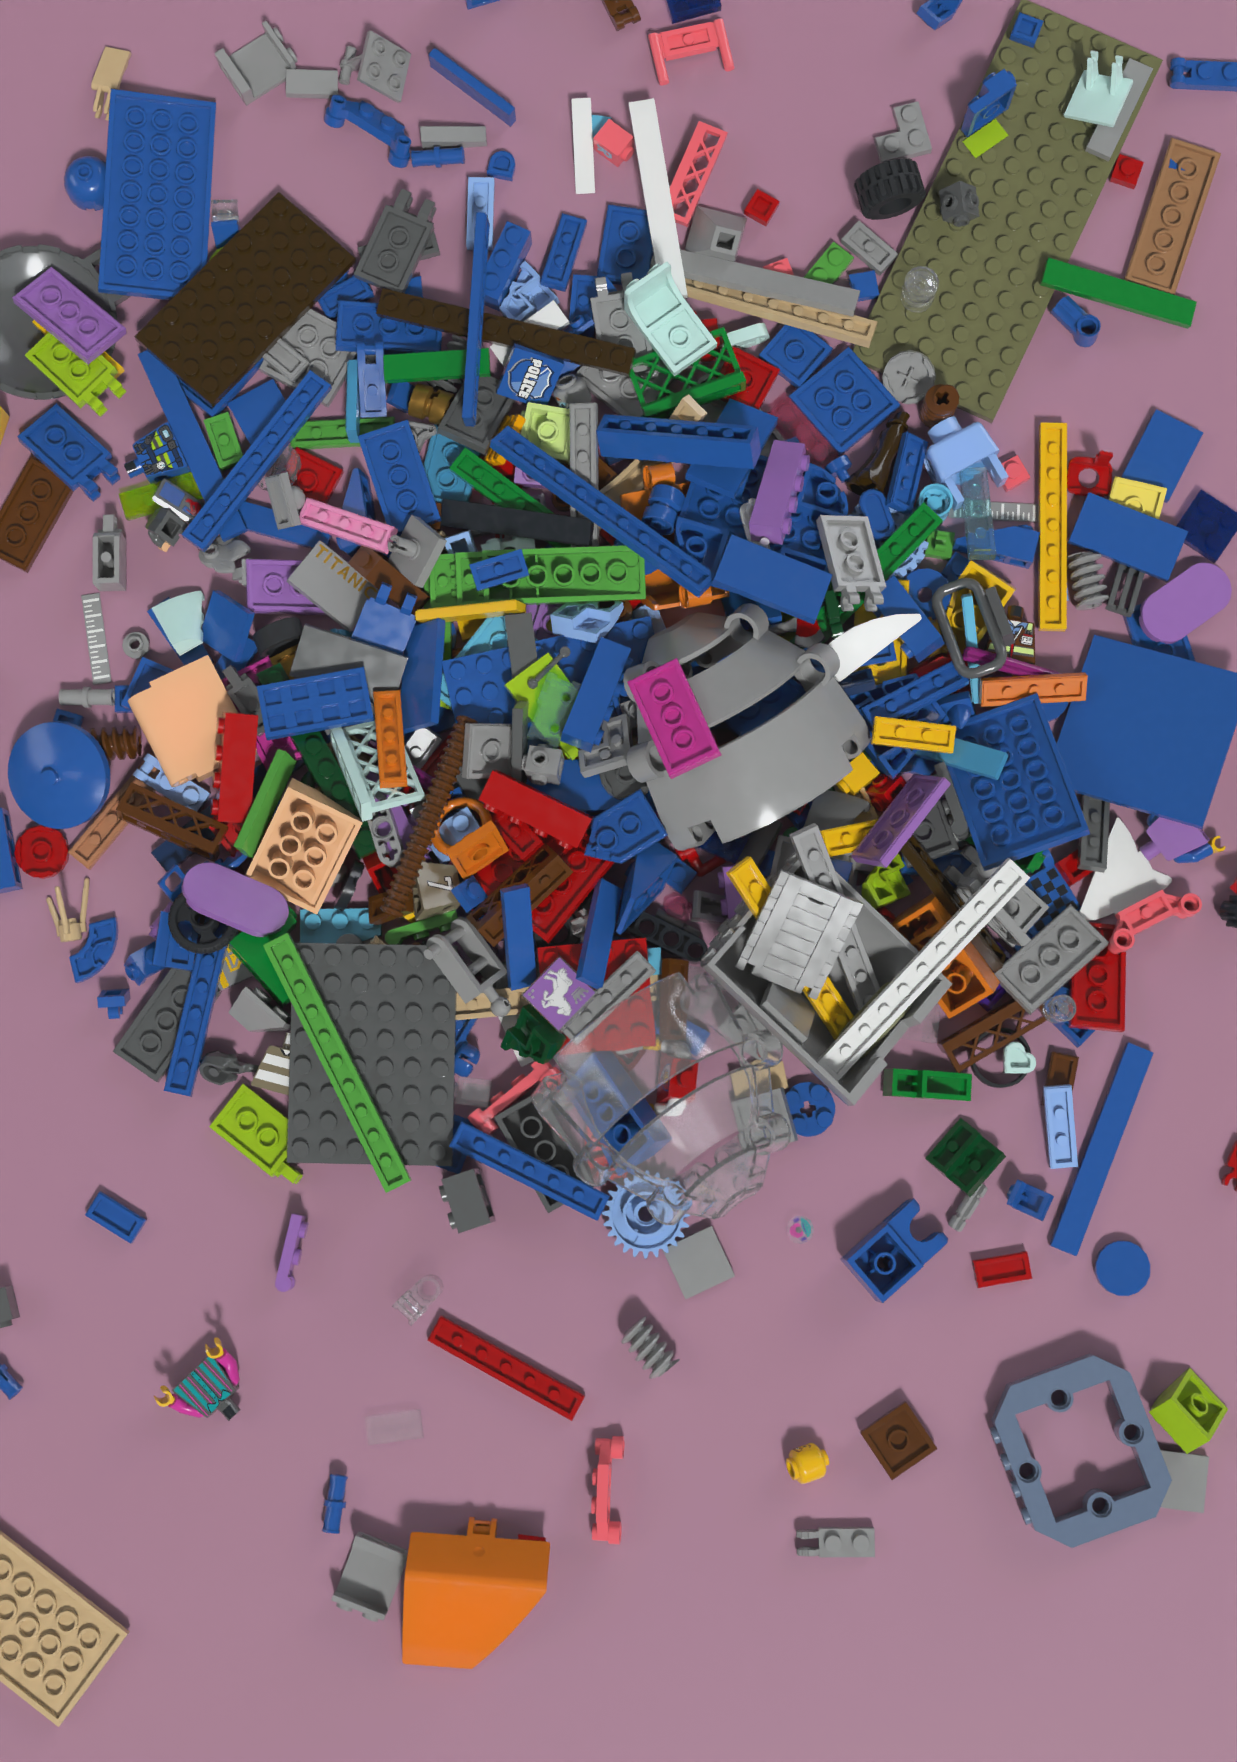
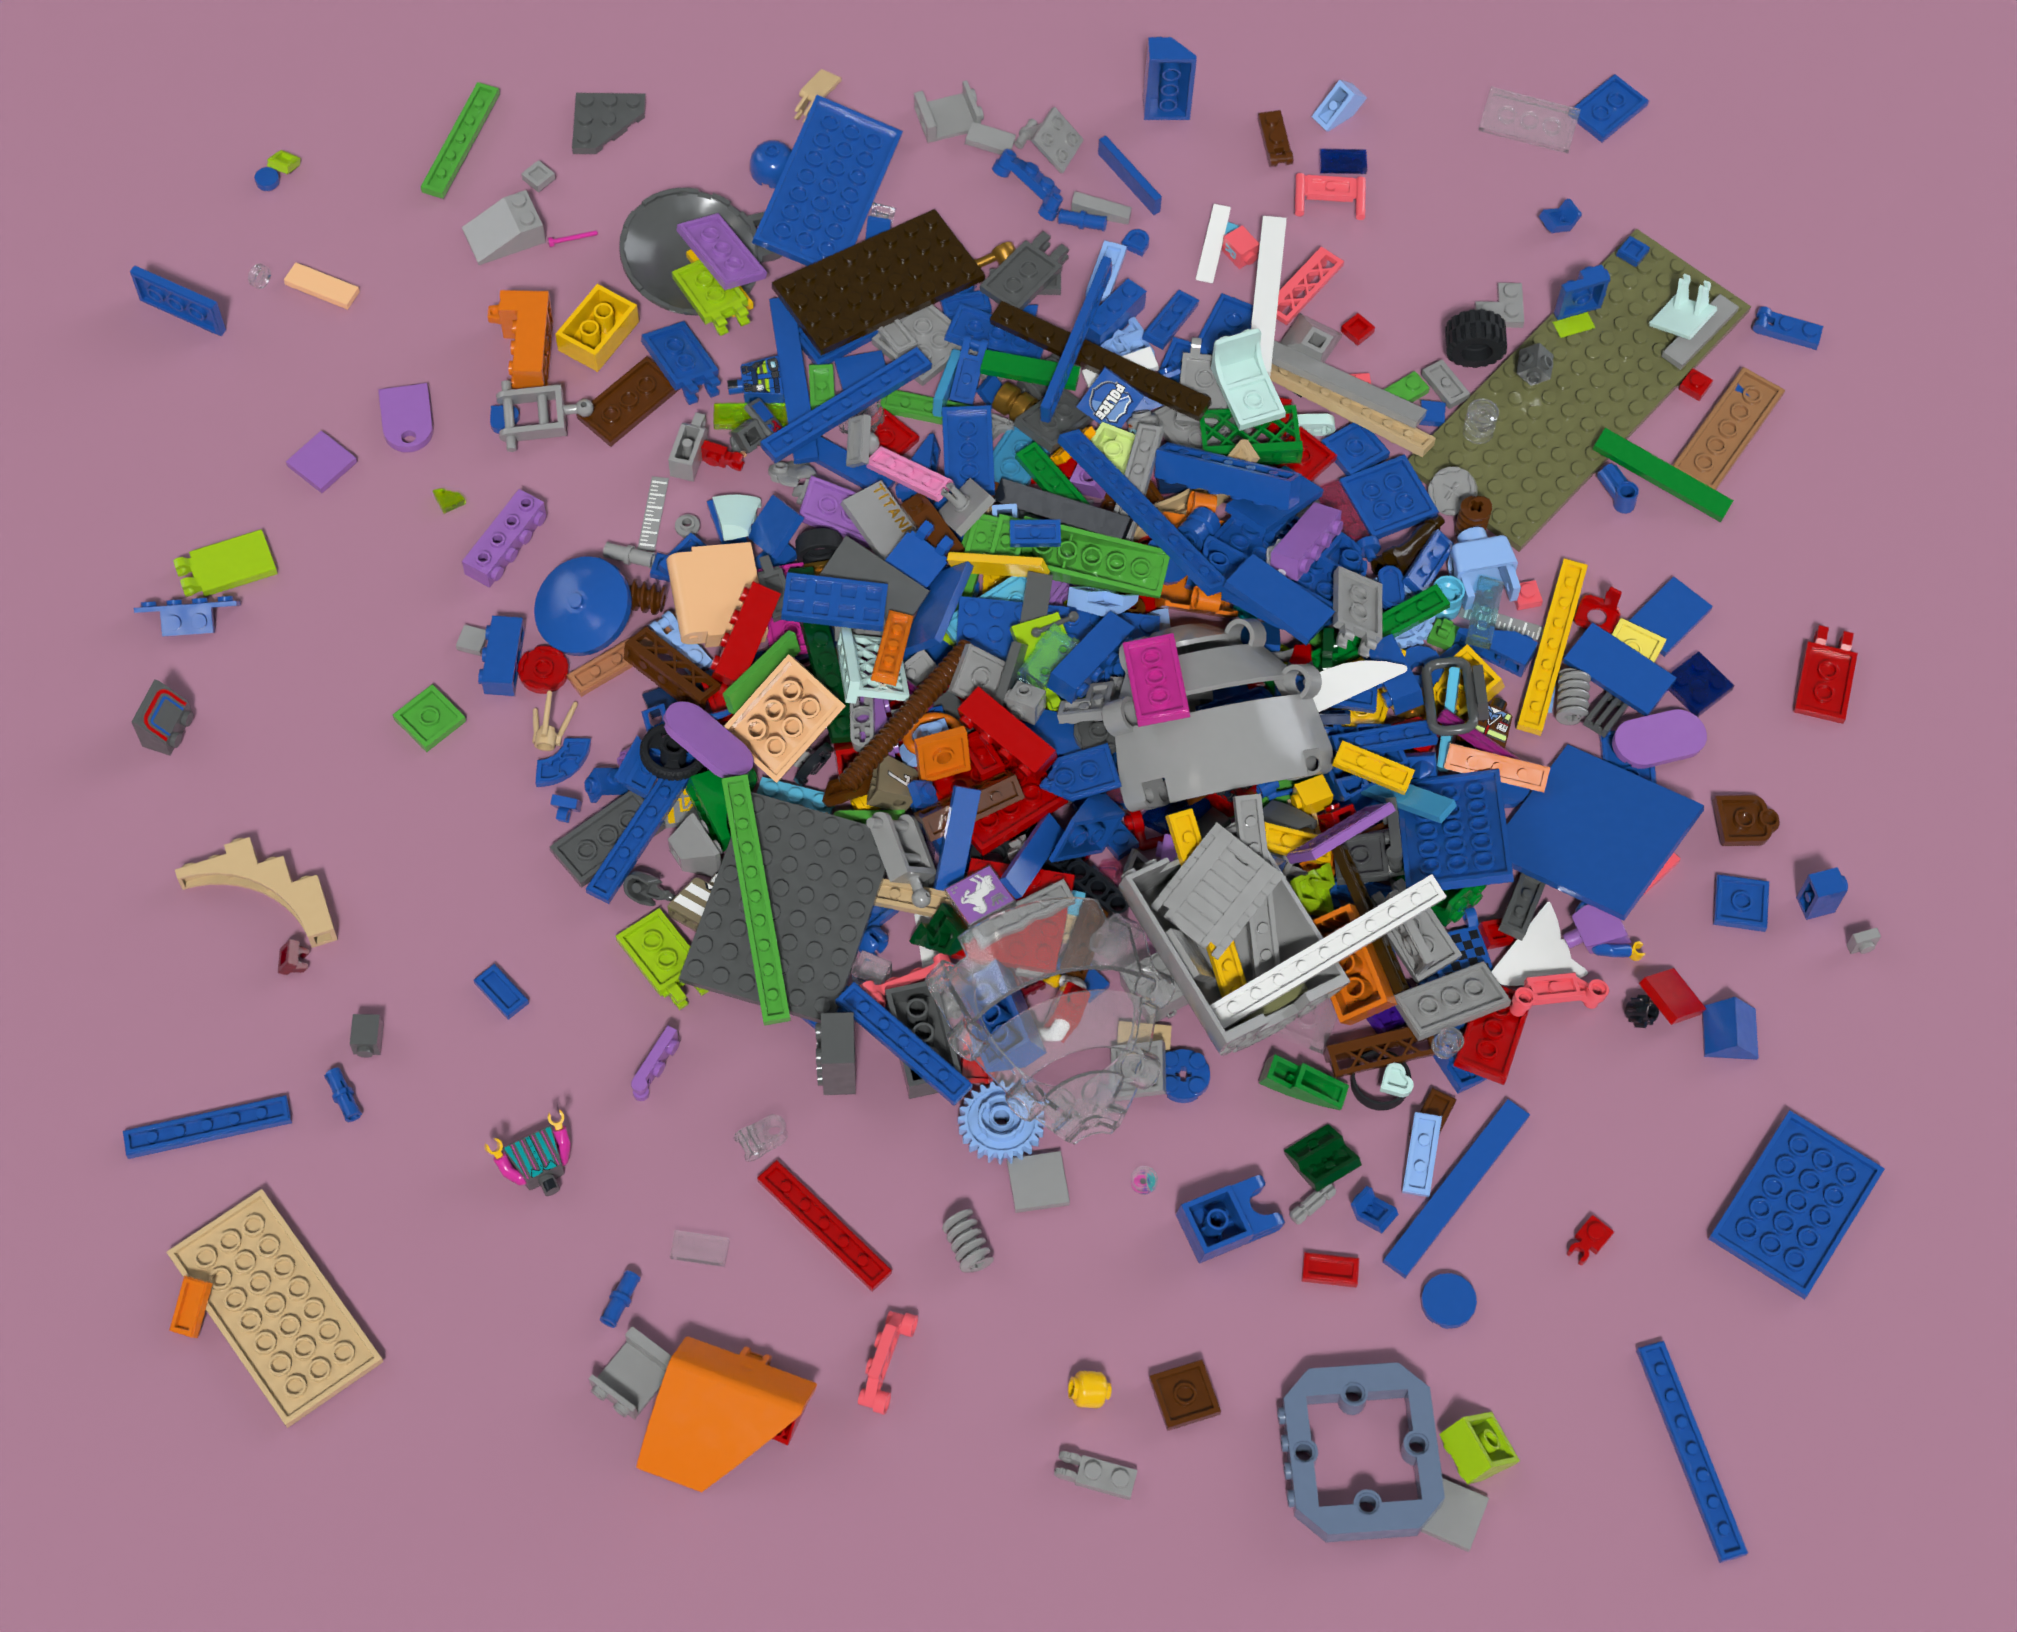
camera: 10 degrees right, 20 degrees down
(141, 555) = (720, 456): none -> red plate
(364, 225) = (998, 254): none -> pearl gold bar

